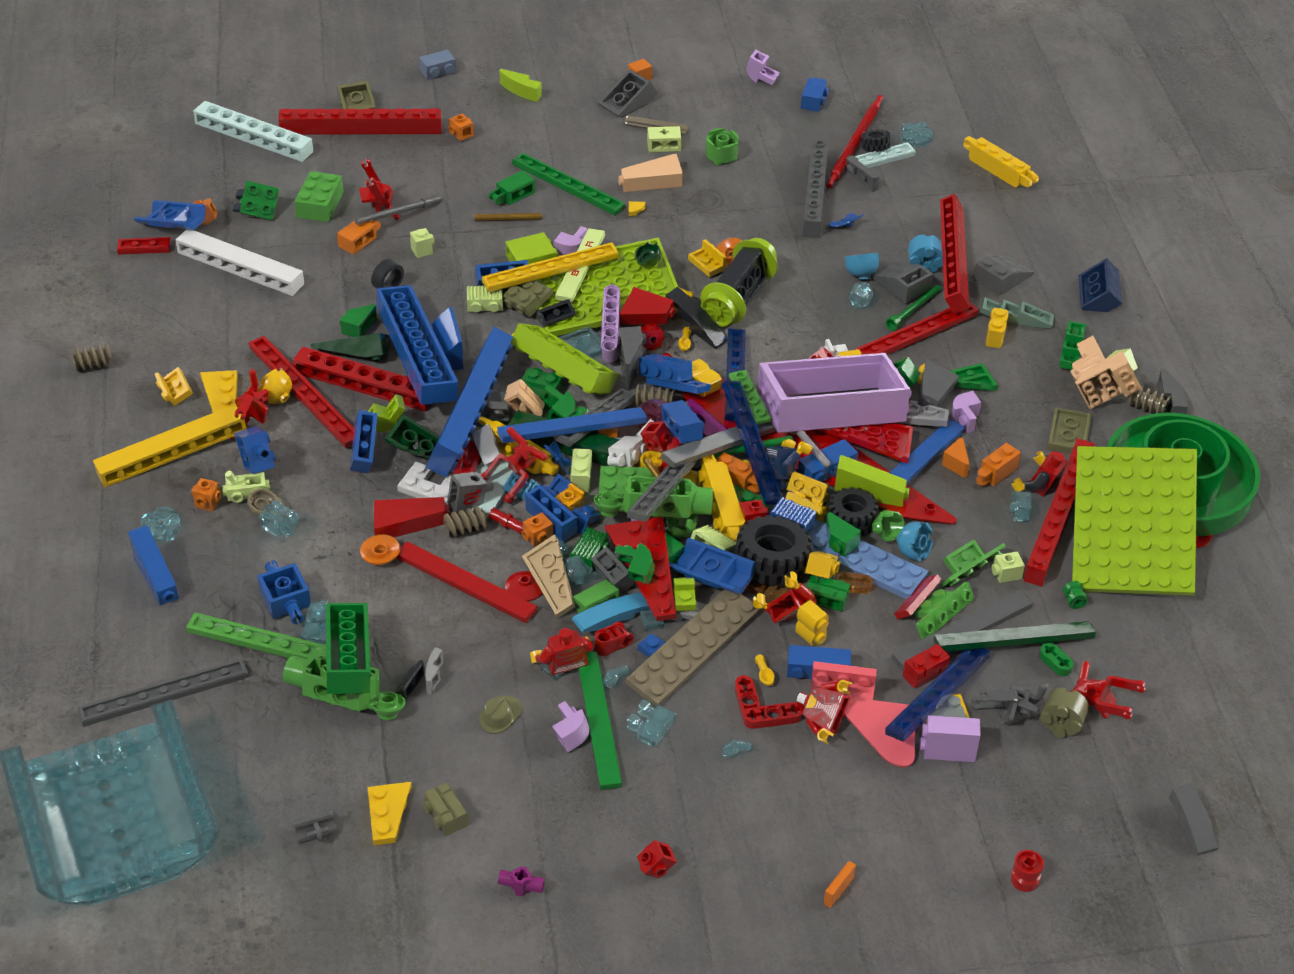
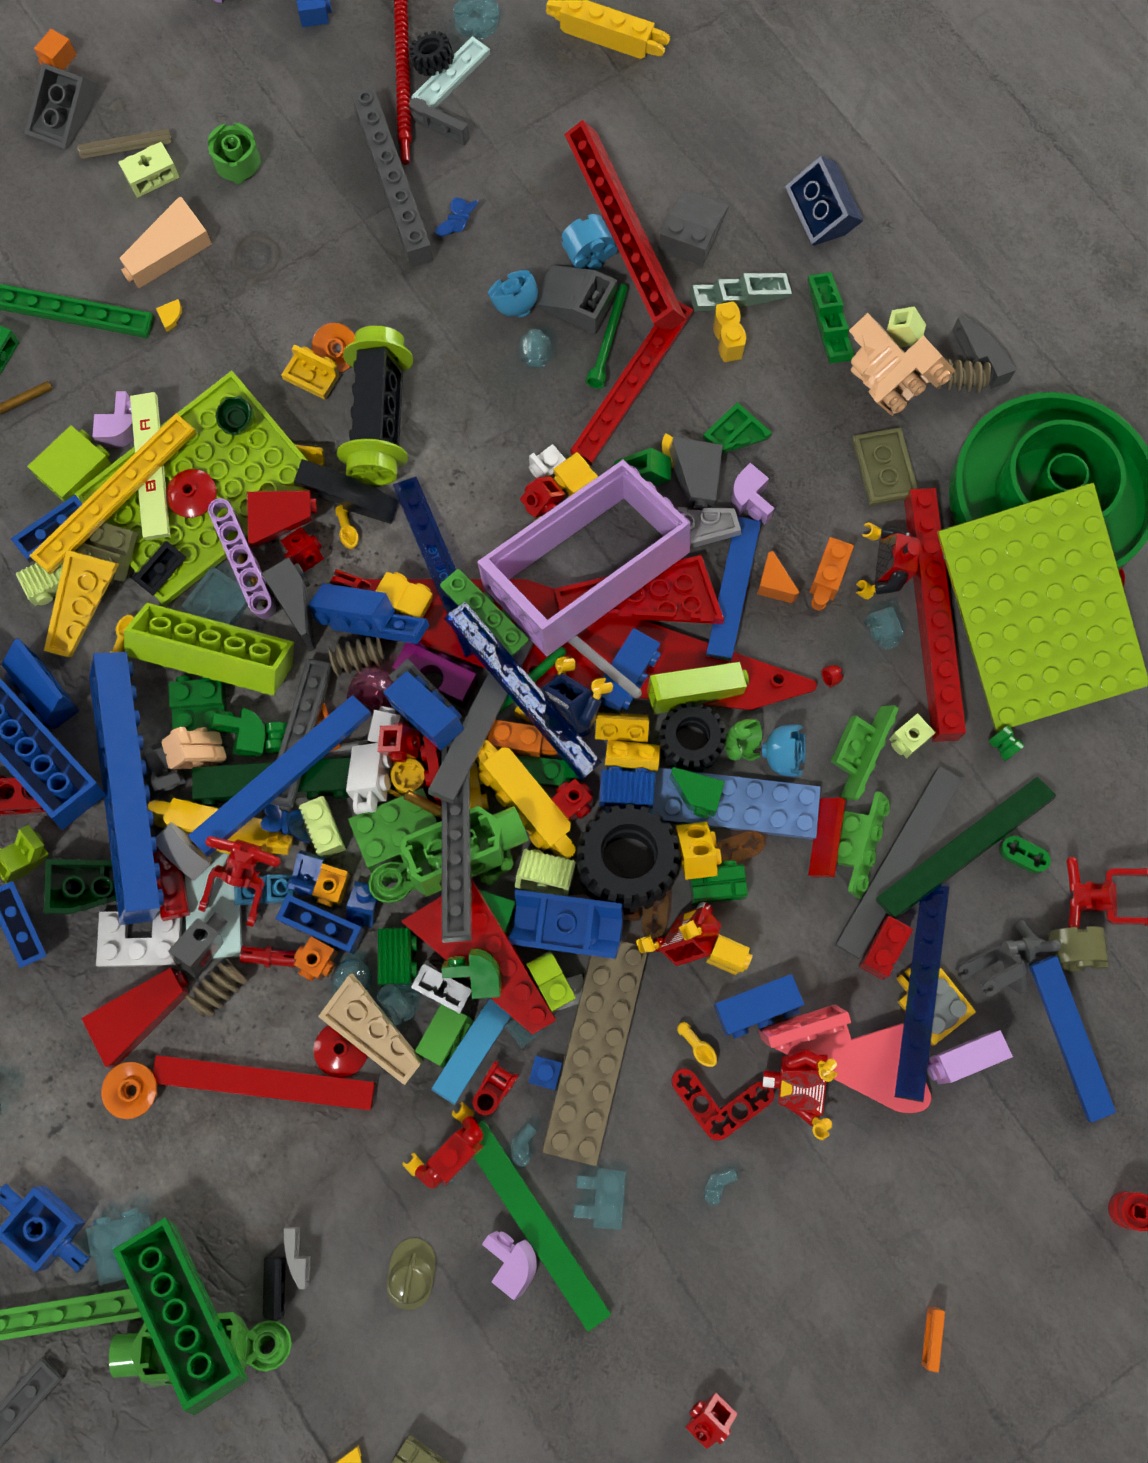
camera: 25 degrees left, 30 degrees up
(496, 309) = (77, 598): none -> yellow wing
(594, 285) = (198, 500): none -> red dish
(969, 519) = (831, 675): none -> red hinge
(1033, 760) = (1072, 1038): none -> blue tile

